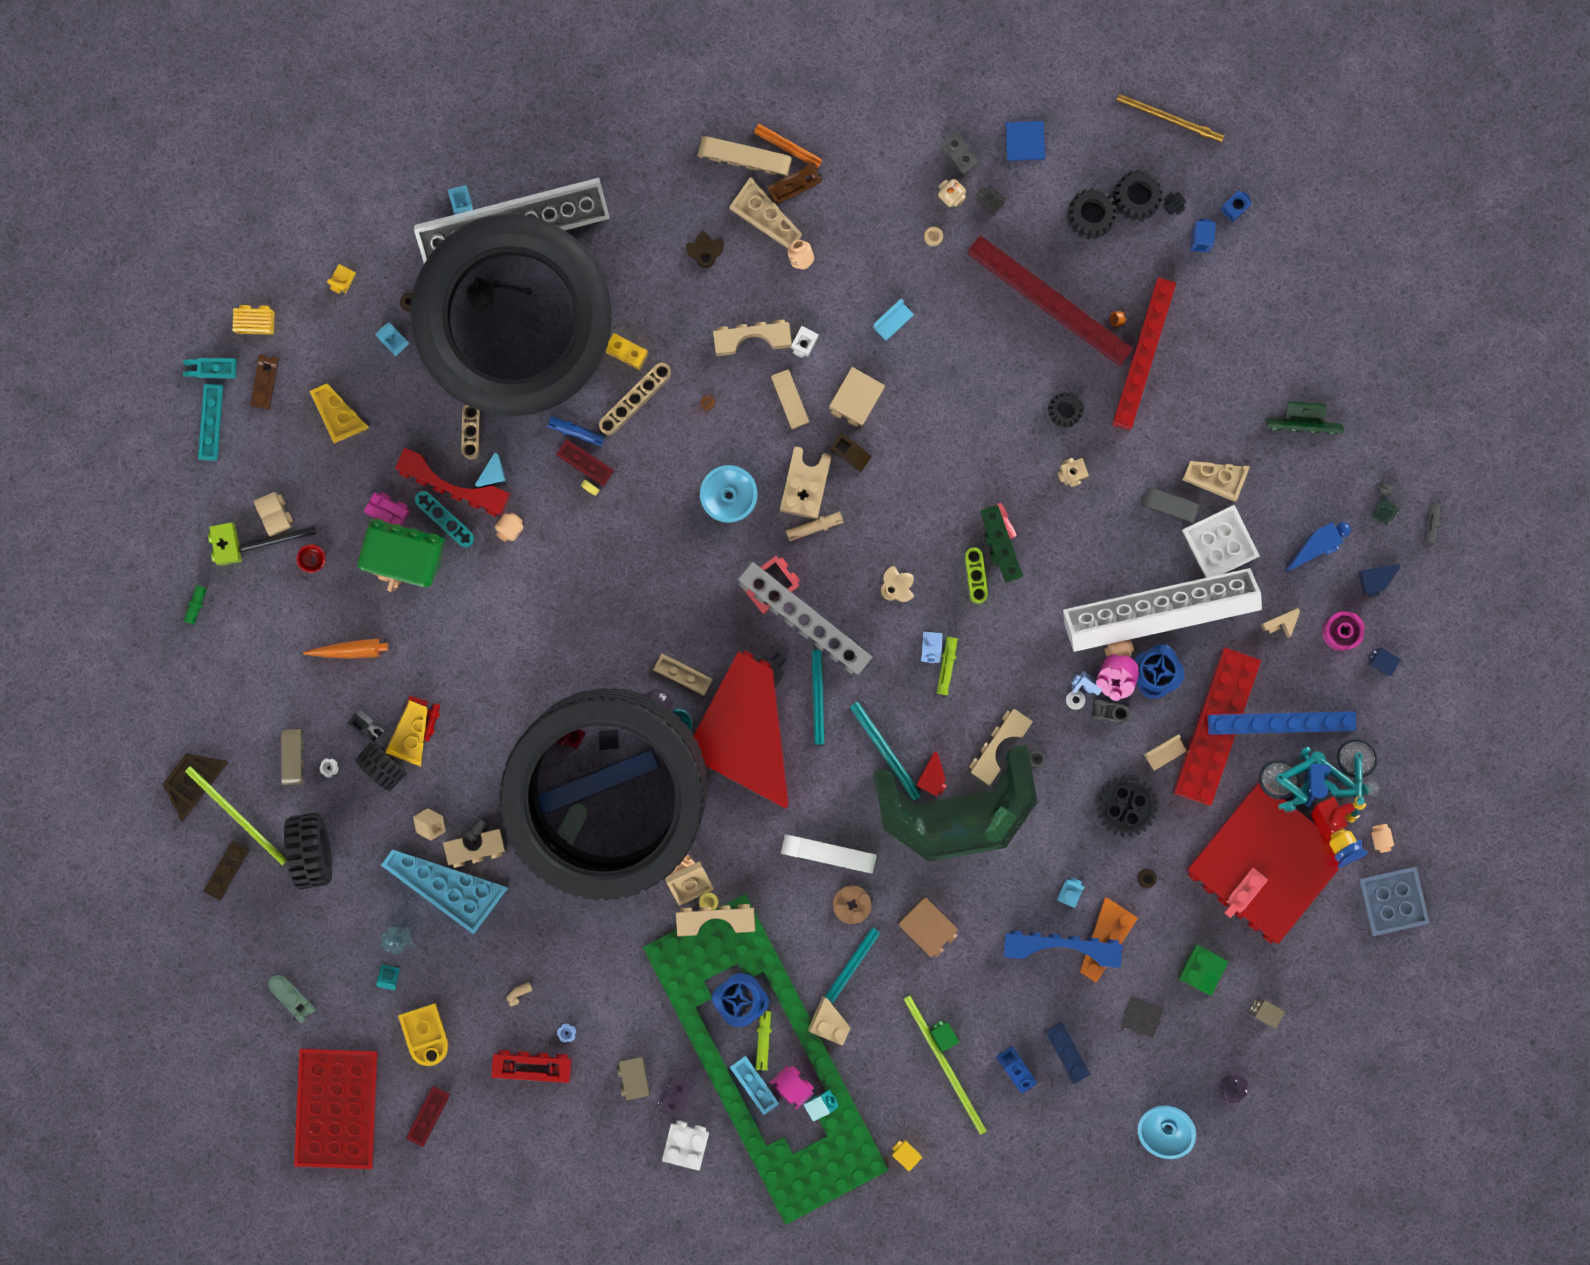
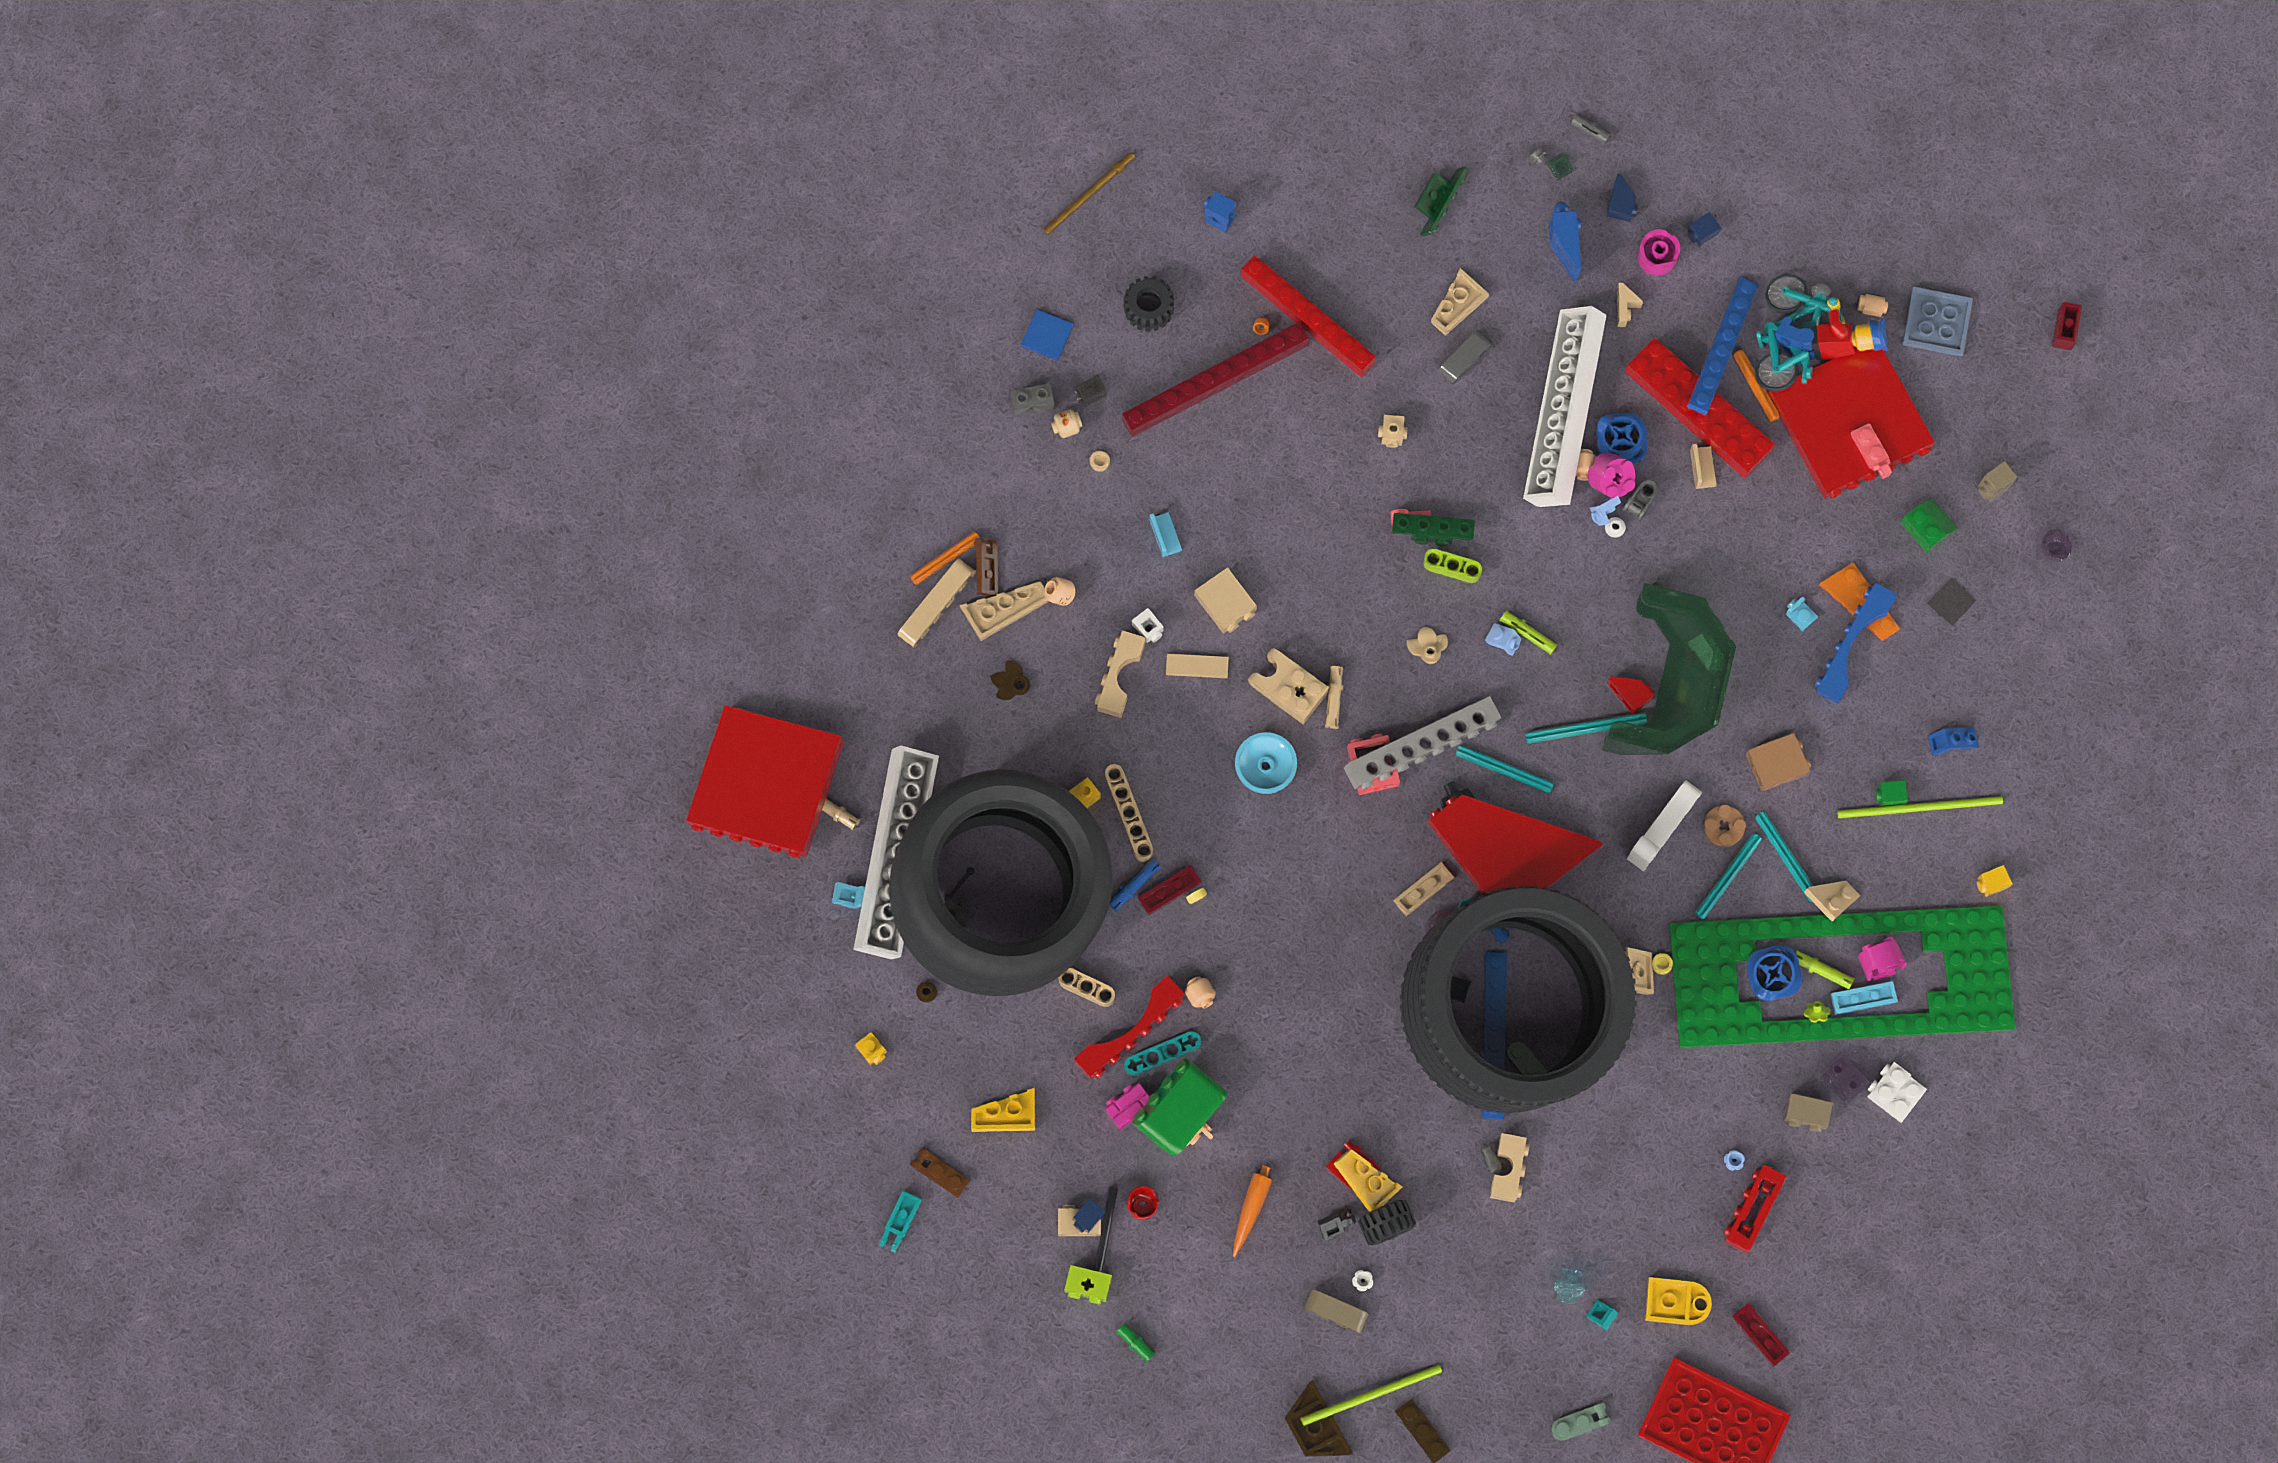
camera: 65 degrees left, 10 degrees down
(210, 422) = (955, 1245): teal tile -> none
(253, 320) = (872, 1154): yellow brick -> none
(275, 518) = (1088, 1216): none -> dark blue brick
(308, 850) = (1443, 1329): black tyre -> none
(392, 339) = (957, 1024): medium azure bracket -> none
(429, 824) = (1465, 1203): tan panel -> none
(455, 893) = (1545, 1209): medium azure wing -> none
(492, 474) = (1139, 984): medium azure slope -> none
(516, 992) = (1672, 1189): tan arm -> none
(523, 86) = (765, 782): none -> red panel
(528, 152) = (840, 814): none -> tan pin
(710, 405) = (1159, 747): clear orange hinge -> none
(724, 1050) = (1817, 1011): none -> lime plant
(740, 919) = (1677, 985): tan arch -> none
(809, 926) = (1728, 876): none -> teal axle
(821, 1105) = (1911, 940): brick -> none
(850, 452) = (1276, 630): dark brown slope -> none
(986, 767) = (1644, 638): tan arch -> none
(1065, 398) = (1327, 400): black tyre -> none
(1067, 1052) = (1967, 682): dark blue arch -> none
(1134, 210) = (1147, 238): black tyre -> none
(1142, 813) = (1726, 536): black gear -> none
(1153, 878) = (1818, 531): dark brown plate -> none
(1166, 1141) = (2084, 624): medium azure dish -> none
(1174, 203) = (1174, 224): black gear -> none
(1220, 542) = (1522, 327): white plate -> none
(1233, 213) = (1207, 177): blue brick -> none
(1253, 776) = (1759, 392): none -> orange axle
(1441, 1016) = (2067, 326): none -> dark red brick

